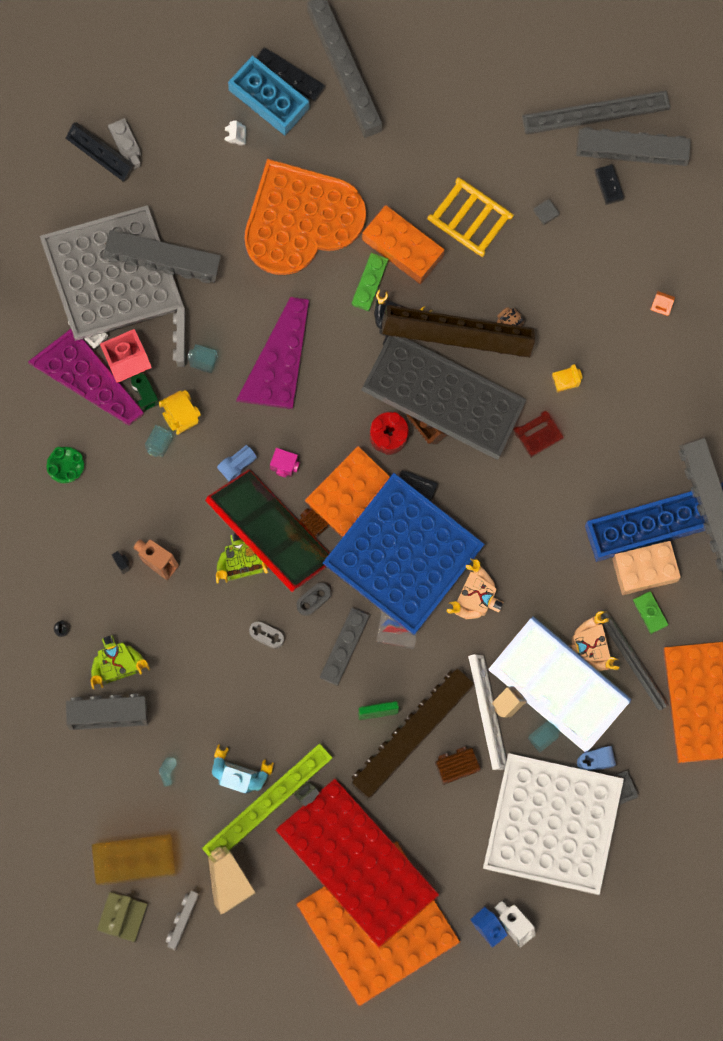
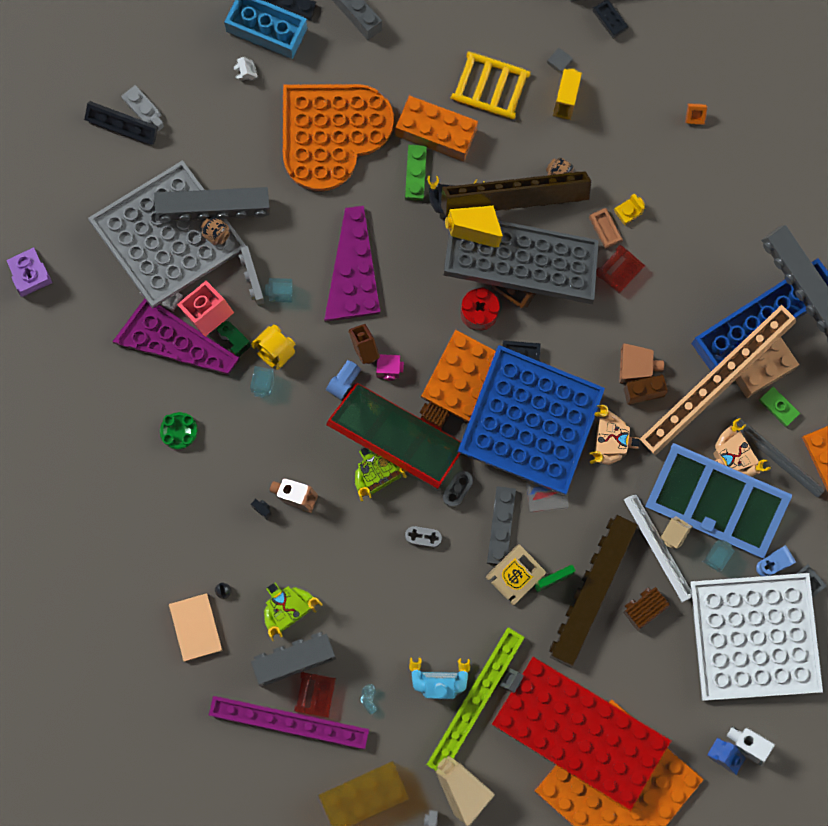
camera: 15 degrees left, 0 degrees up
(24, 655) = (195, 627): none -> light nougat tile
(85, 770) = (289, 722): none -> magenta plate
(123, 754) = (321, 696): none -> clear red plate
(157, 283) = (215, 231): none -> medium nougat head
(266, 434) = (364, 344): none -> reddish brown brick
(340, 698) = (513, 577): none -> tan container
(407, 350) = (475, 225): none -> yellow slope
(524, 557) = (645, 389): none -> reddish brown brick
(525, 531) = (637, 363): none -> nougat torso
(537, 390) = (605, 228): none -> nougat tile
(541, 247) = (567, 93): none -> yellow slope
(594, 569) = (718, 380): none -> light nougat brick

